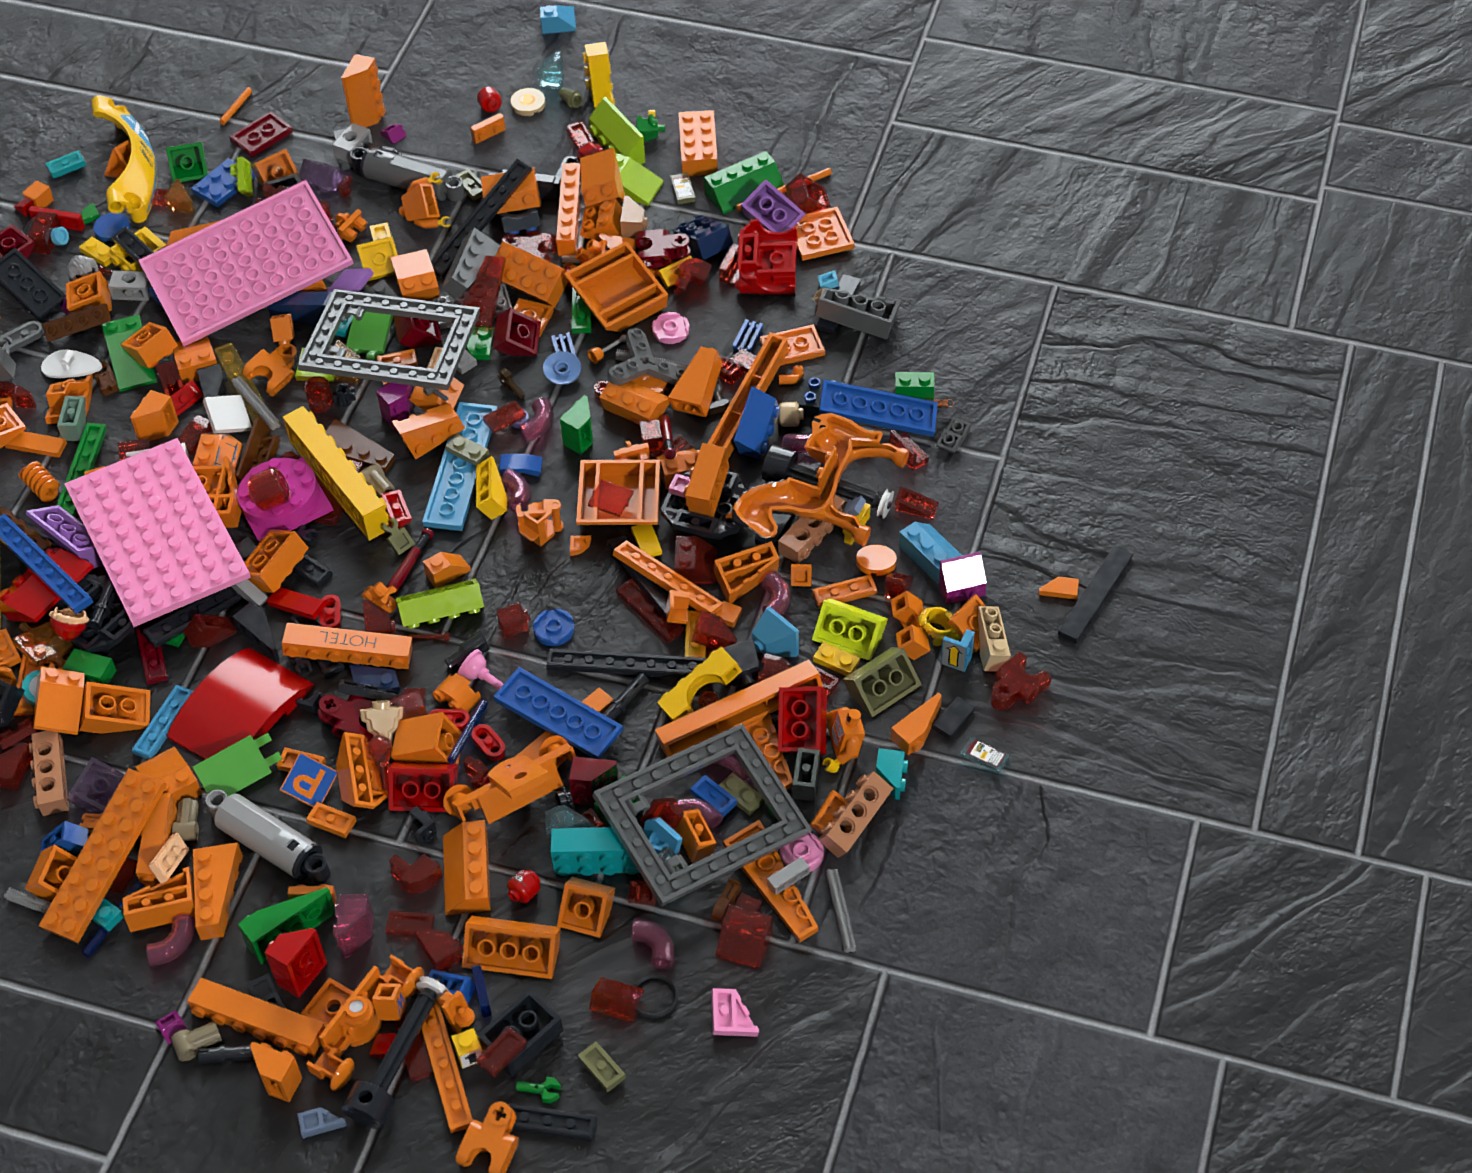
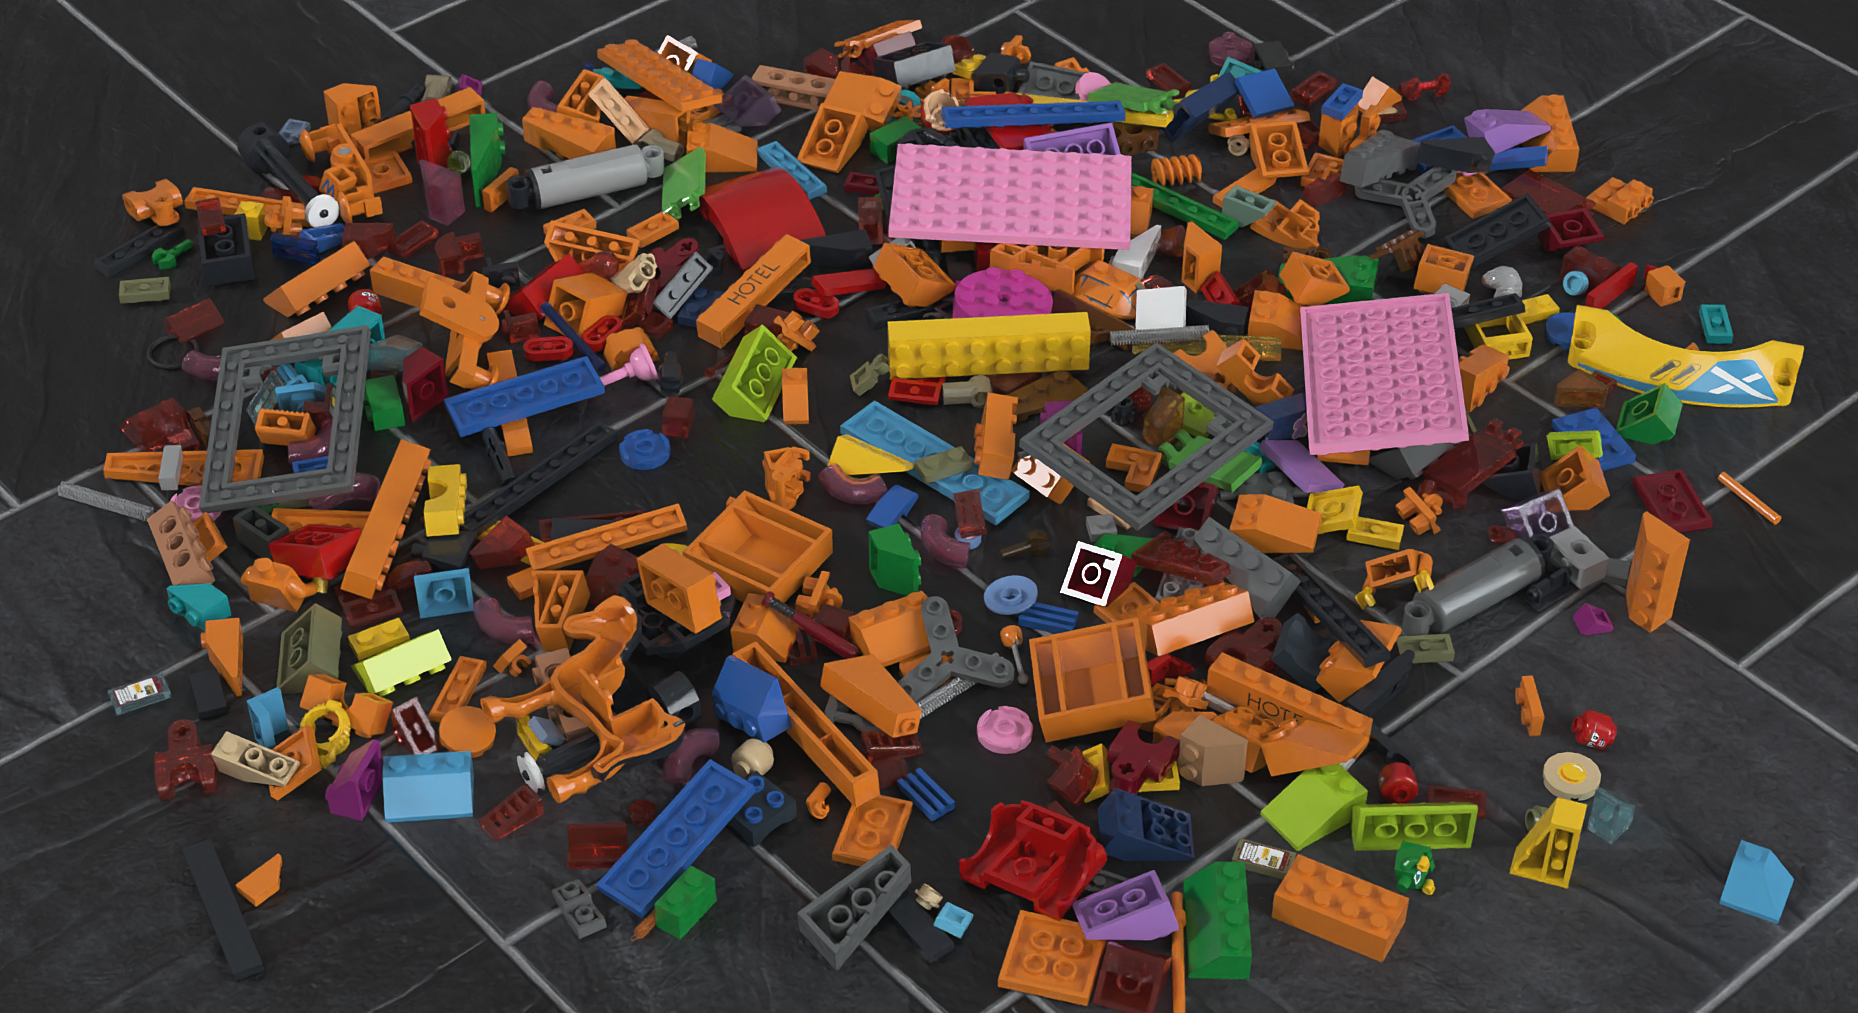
camera: 120 degrees right, 10 degrees down
(69, 364) = (1347, 237): white shield -> none
(268, 489) = (985, 269): clear red head -> none
(308, 780) = (624, 218): blue piece -> none
(404, 569) = (819, 365): dark red piece -> none
(610, 498) = (754, 532): clear red piece -> none
(677, 606) = (557, 521): orange panel -> none
(730, 1015) = (94, 382): bright pink wing -> none

